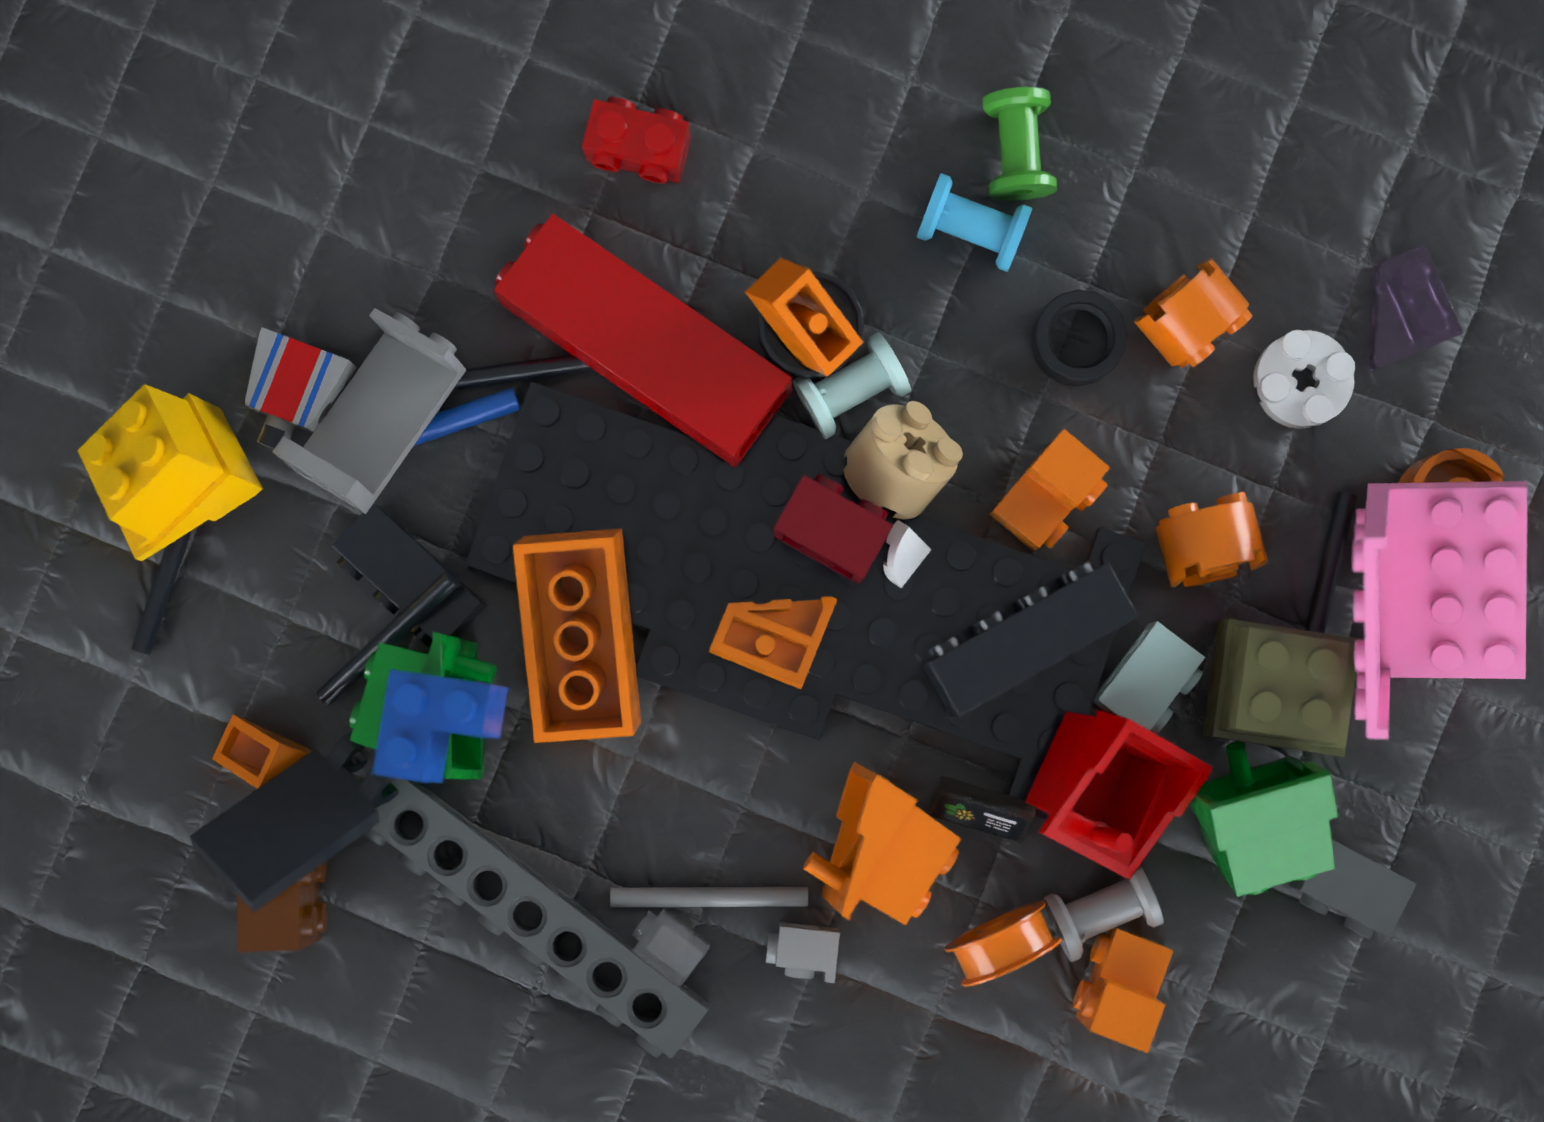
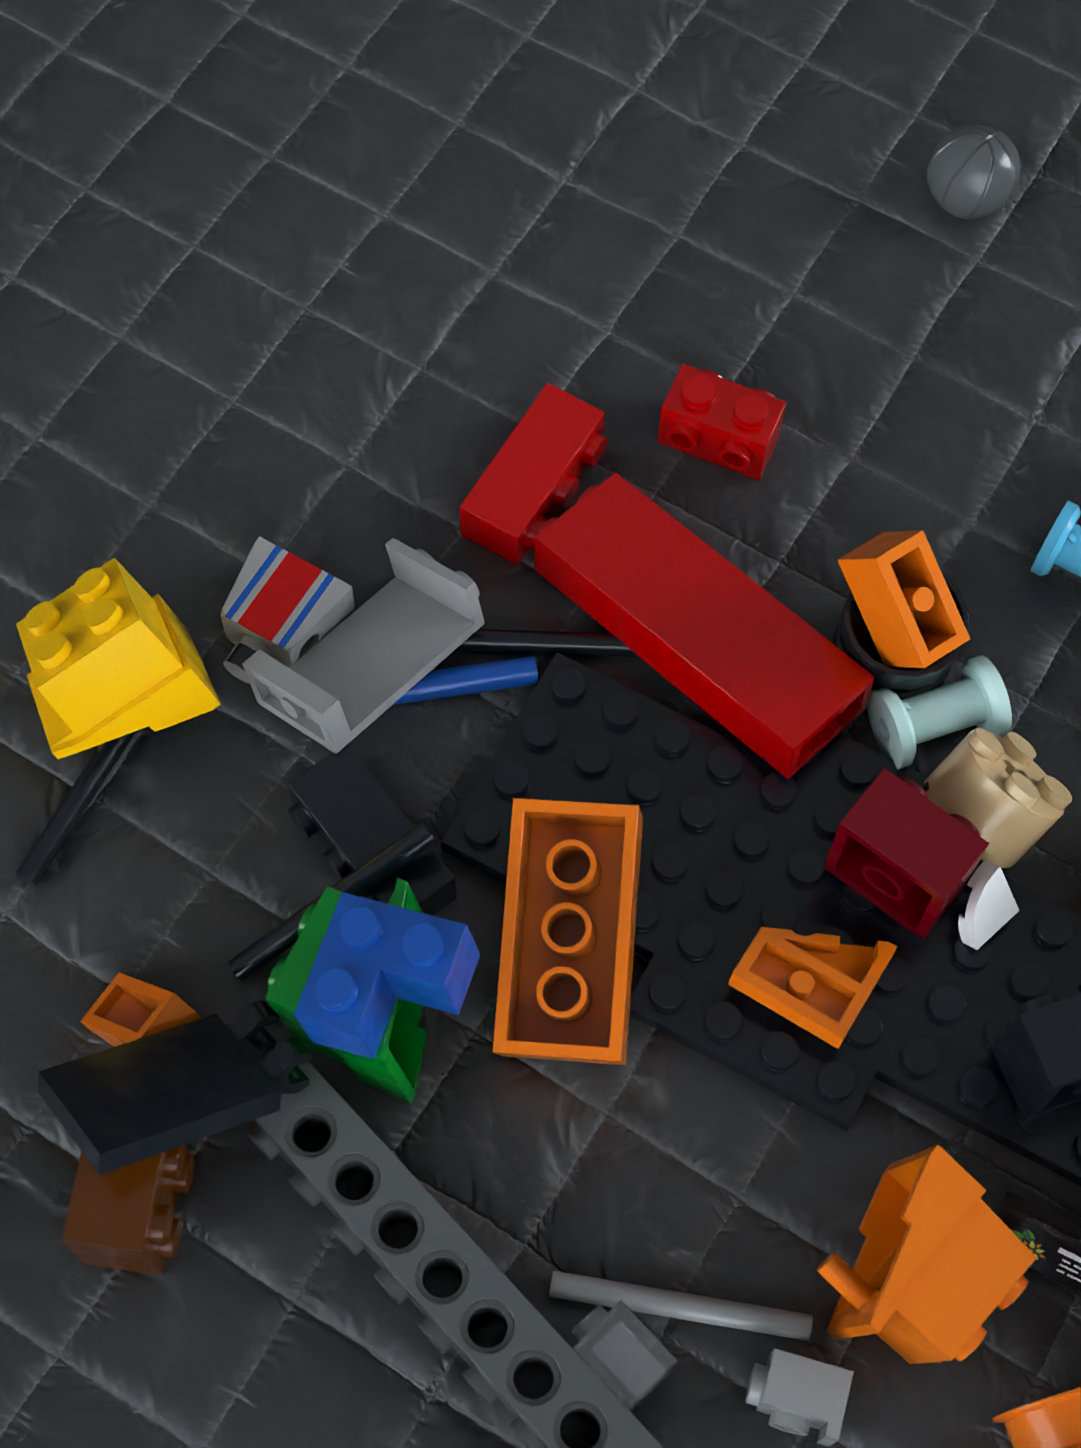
camera: 10 degrees right, 20 degrees down
(484, 217) = (533, 473): none -> red brick

